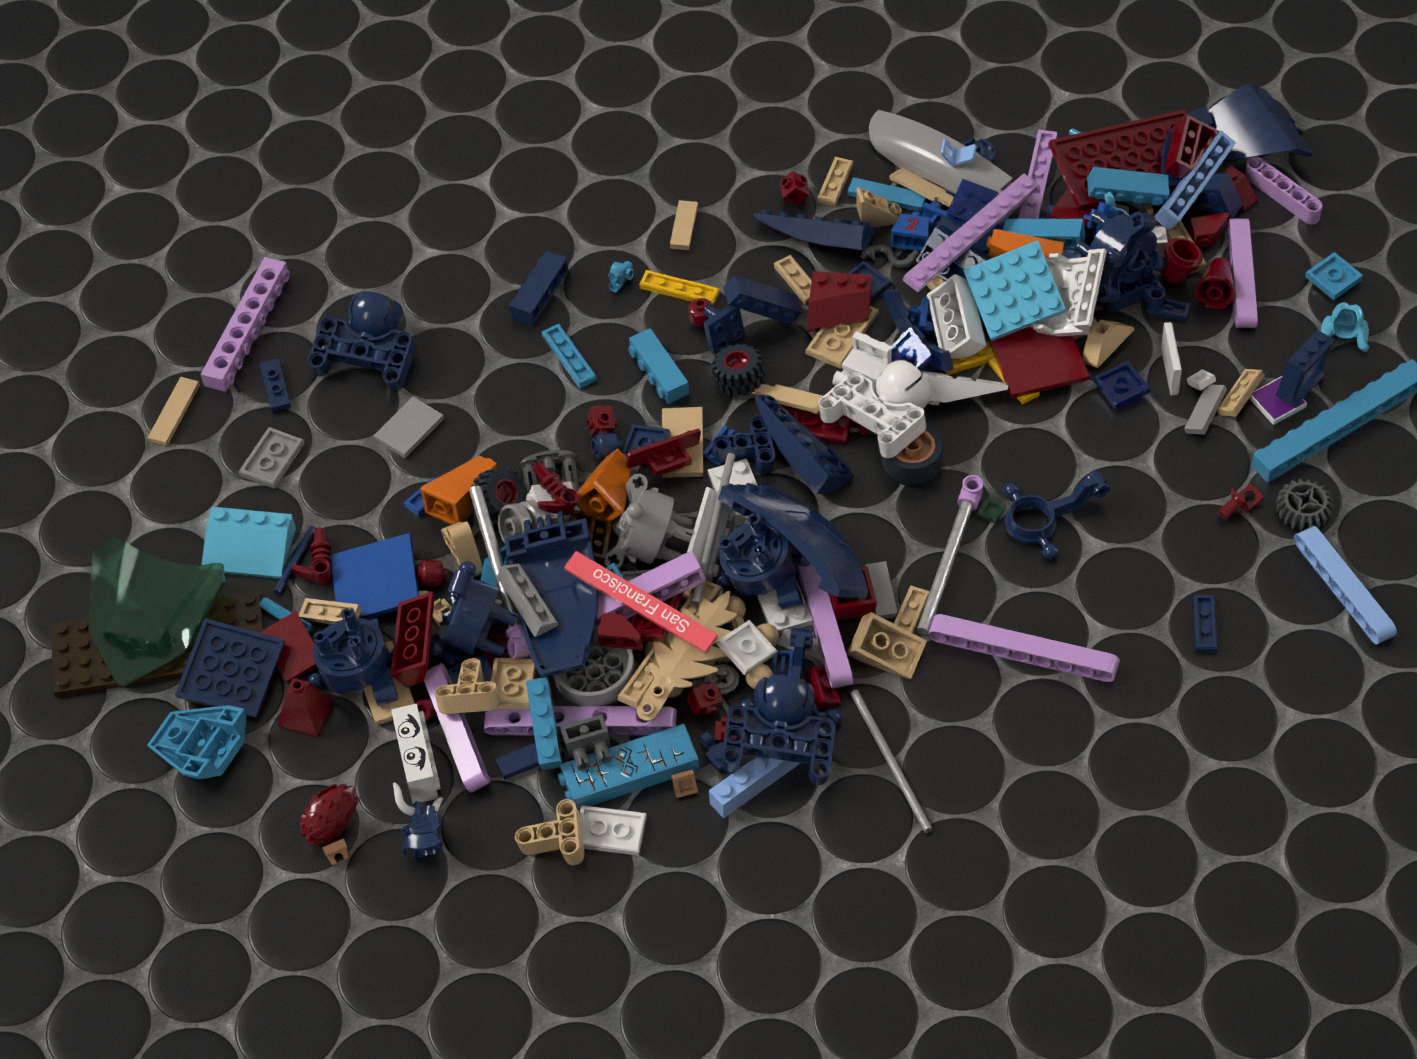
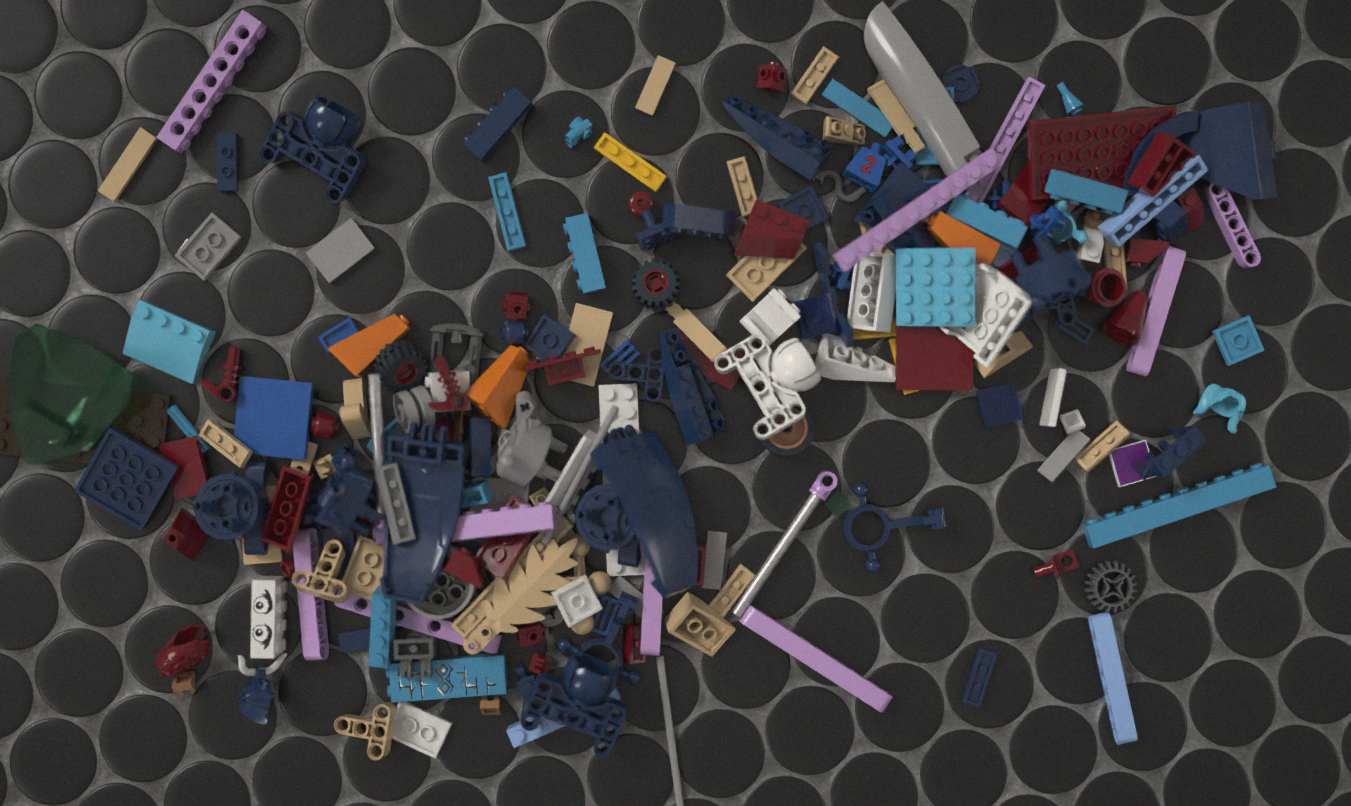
camera: 15 degrees right, 35 degrees up
(200, 740) = (85, 544): dark azure wedge -> none
(295, 560) = (208, 369): dark blue bar -> none
(602, 533) = (480, 447): none -> dark blue tile
(641, 602) = (491, 543): coral tile -> none
(958, 156) = (937, 107): light blue bracket -> none
(970, 200) = (932, 163): clear blue plate -> none

